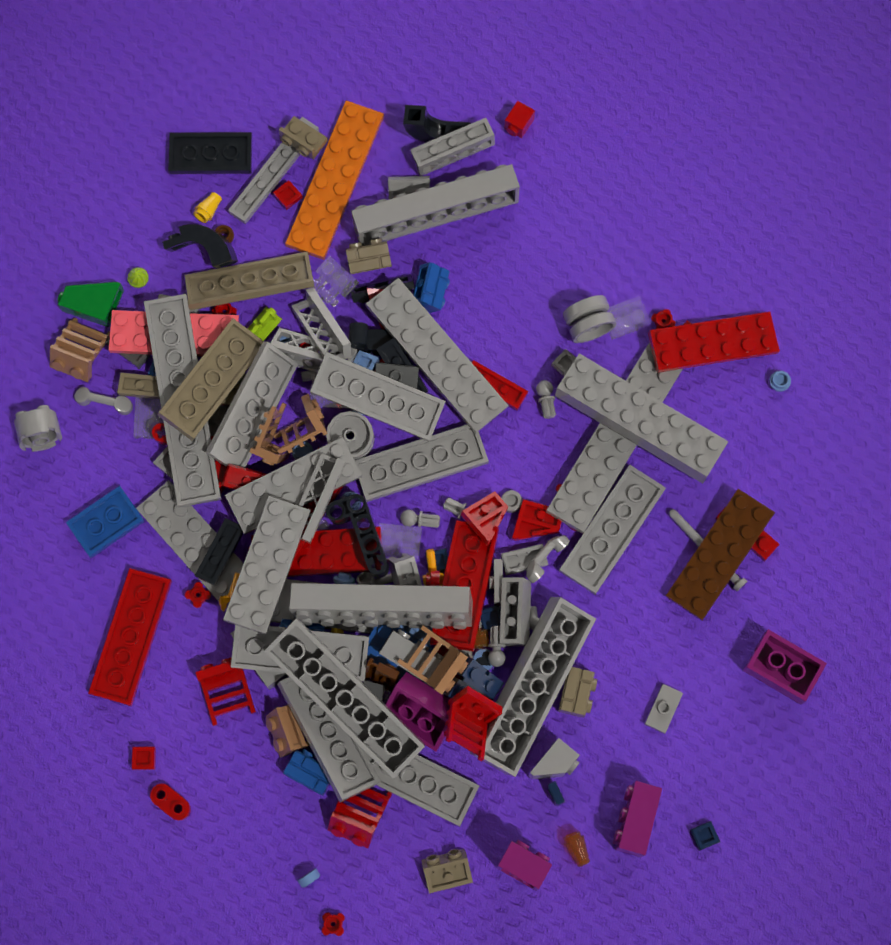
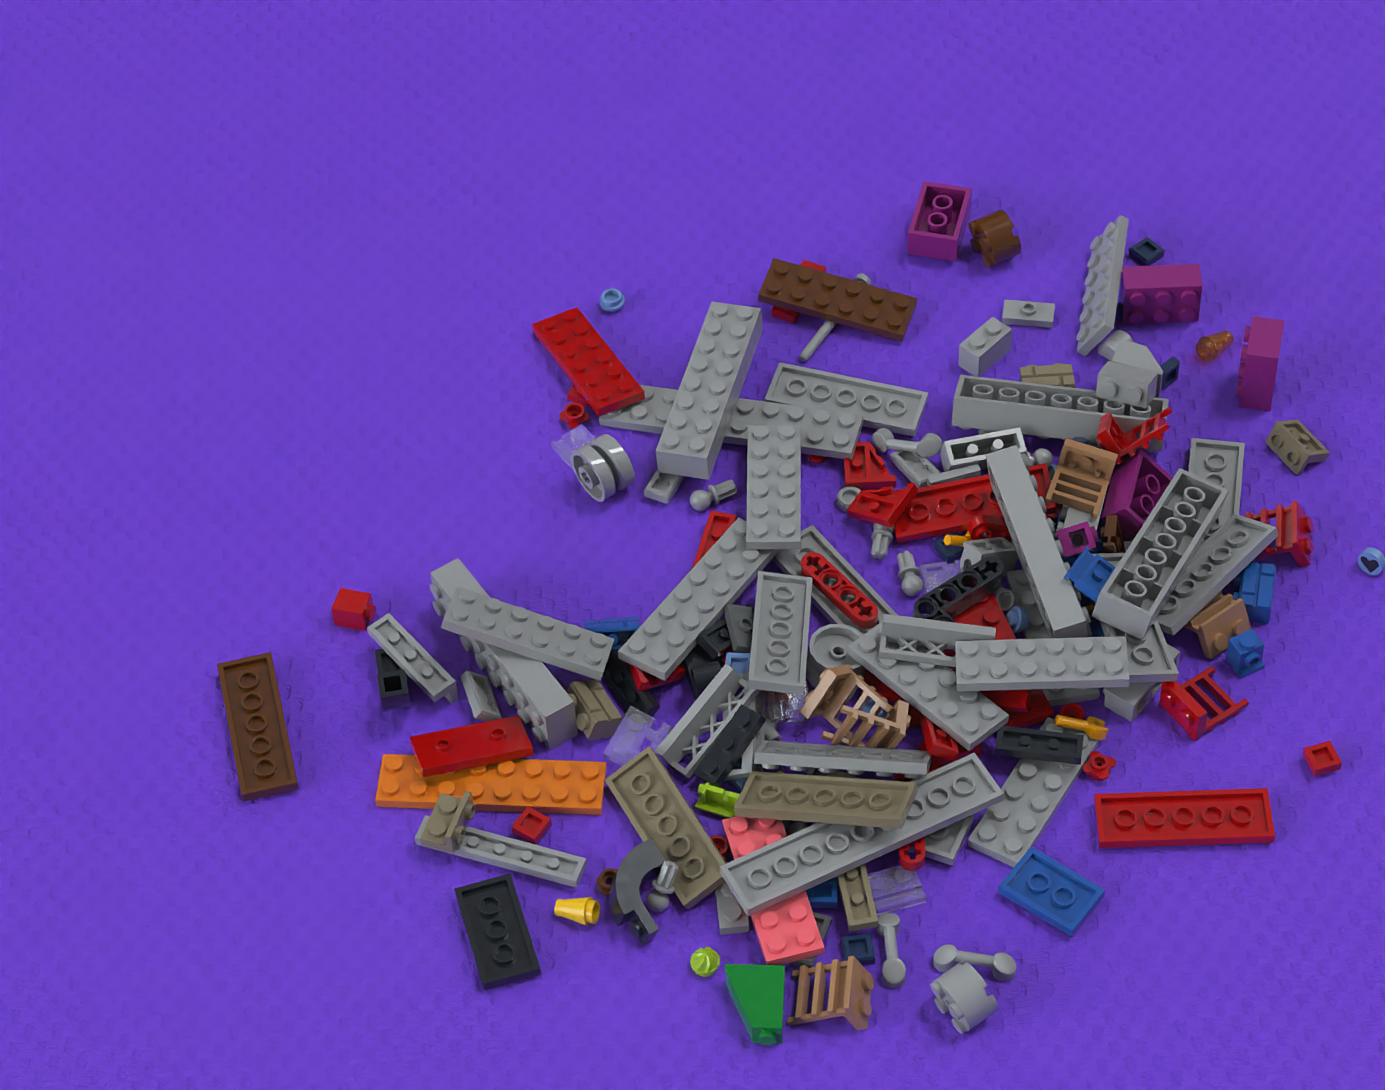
camera: 105 degrees left, 25 degrees down
(59, 468) = (1002, 964): none -> light grey bar
(110, 379) = (860, 947): none -> dark blue tile
(170, 801) = (1358, 718): red plate -> none
(200, 263) = (658, 899): none -> light grey axle
(254, 740) = (1245, 653): none -> blue brick
(295, 336) = (729, 746): none -> black plate
(333, 630) = (1090, 574): none -> blue plate
(364, 166) = (471, 746): none -> red plate
(375, 634) = (1088, 535): none -> magenta brick
(415, 461) = (842, 588): none -> red beam
(429, 215) = (527, 633): none -> light grey plate
(437, 38) = (257, 726): none -> reddish brown plate
(524, 436) = (773, 487): none -> light grey plate
(532, 742) = (1126, 384): none -> light grey piece
(601, 766) = (1110, 345): none -> light grey brick
(630, 655) = (985, 347): none -> light grey piece
(665, 775) = (1102, 285): none -> light grey plate
(748, 704) = (994, 238): none -> reddish brown brick

